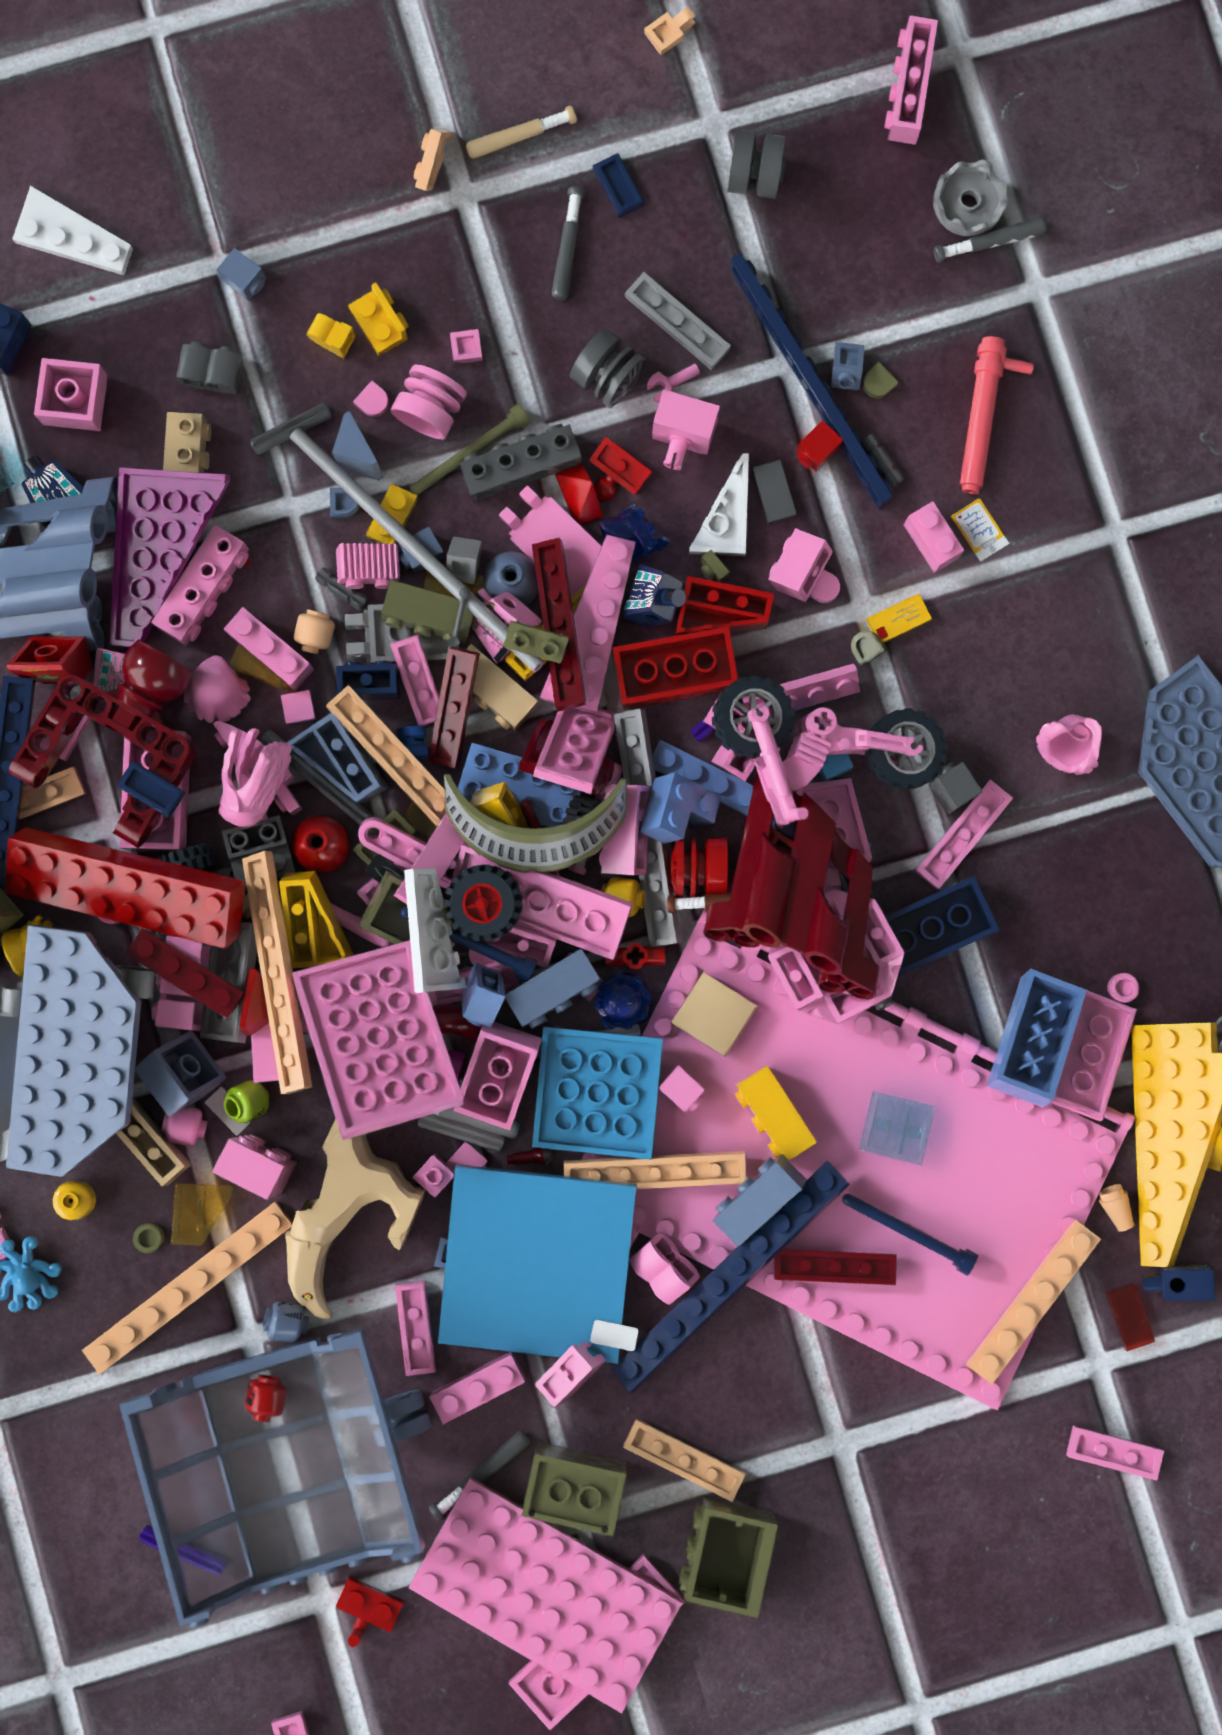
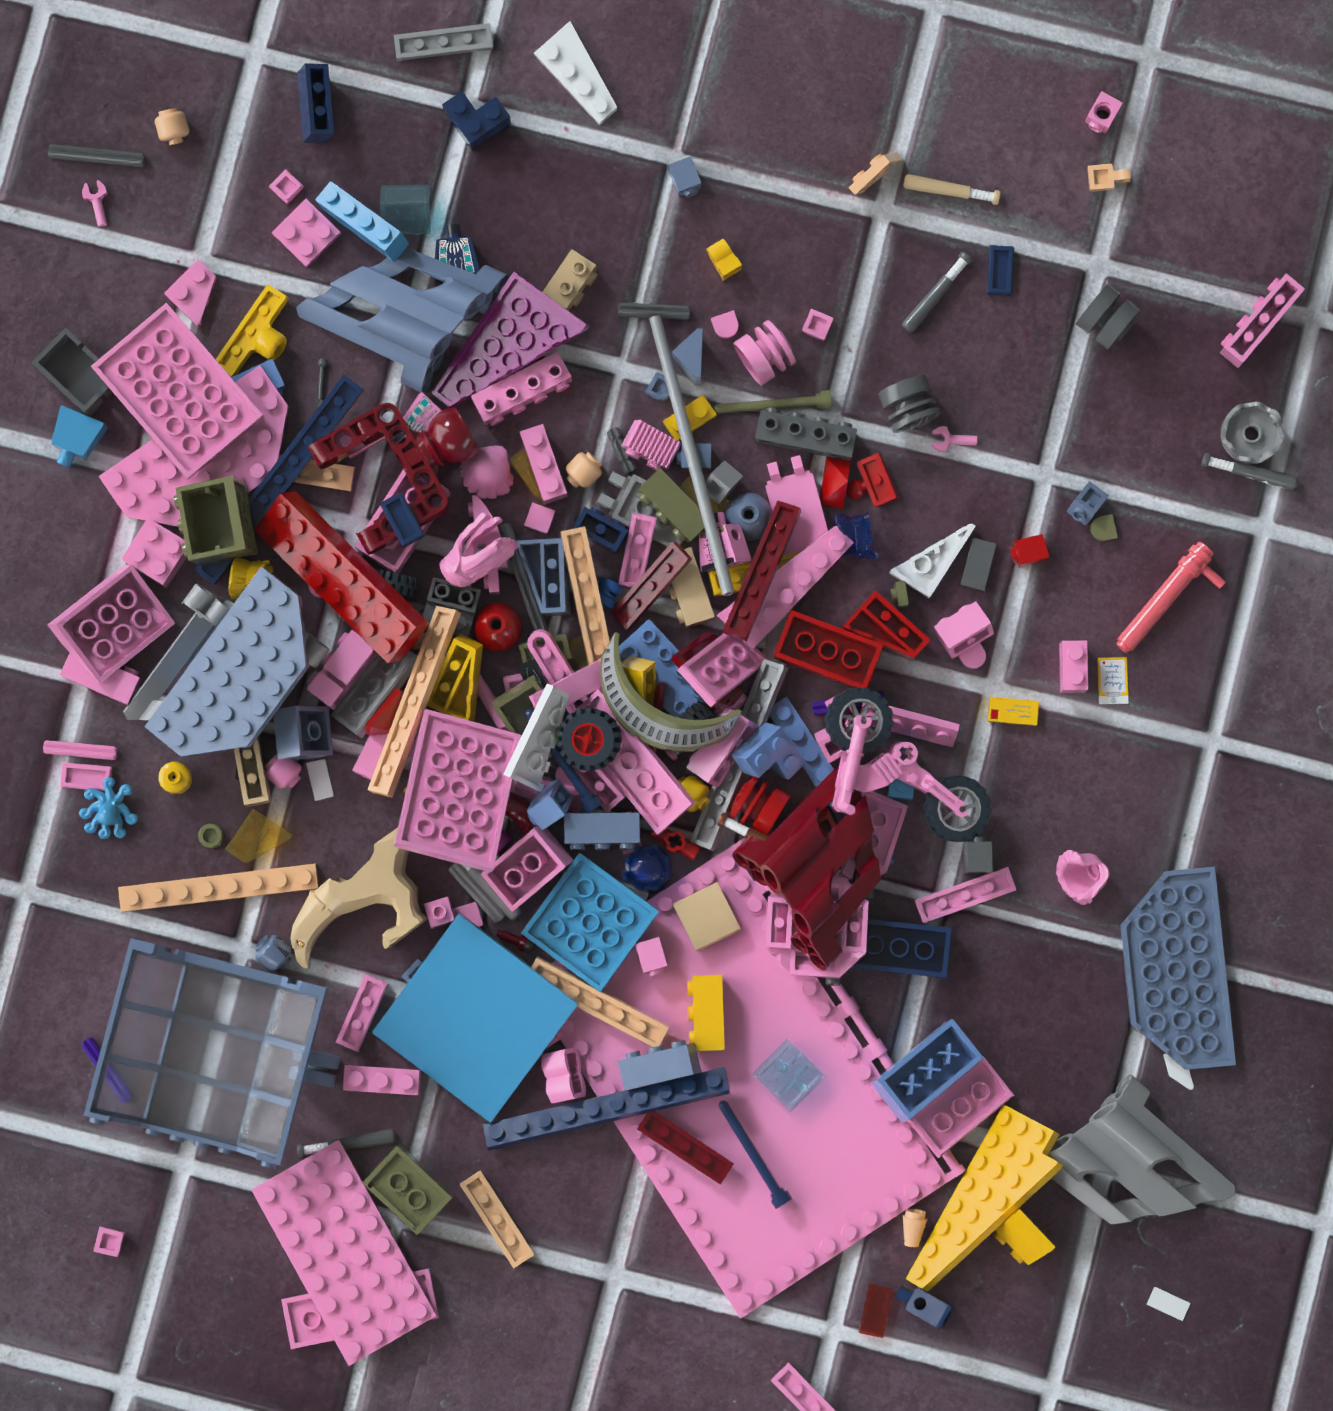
camera: 30 degrees right, 0 degrees up
(52, 659) = (385, 381): red slope -> none
(71, 394) = (509, 194): bright pink brick -> none
(185, 973) = (349, 664): dark red plate -> none
(209, 368) = (621, 233): dark grey brick -> none
(246, 1101) = (337, 780): lime head -> none
(255, 1166) = (318, 830): bright pink brick -> none
(265, 1398) = (229, 997): red head -> none
(369, 1606) = (214, 1188): red plate -> none
(378, 320) = (764, 268): yellow bracket -> none
(464, 594) = (679, 538): dark grey hinge -> none
(535, 641) = (736, 575): olive hinge -> none
(569, 1373) = (452, 1108): bright pink hinge -> none
(614, 1335) = (500, 1101): white sticker -> none
(653, 597) = (842, 590): dark blue torso -> none
(677, 321) = (982, 397): light grey plate -> none
(684, 425) = (939, 478): bright pink brick -> none
(728, 1556) = (488, 1302): olive container -> none
(804, 370) = (1054, 510): dark blue plate -> none
(867, 646) = (977, 717): tile -> none
(883, 460) = (1071, 588): dark grey axle -> none
(1033, 1301) = (811, 1256): light nougat plate -> none
(1123, 987) = (1014, 1074): bright pink tile -> none

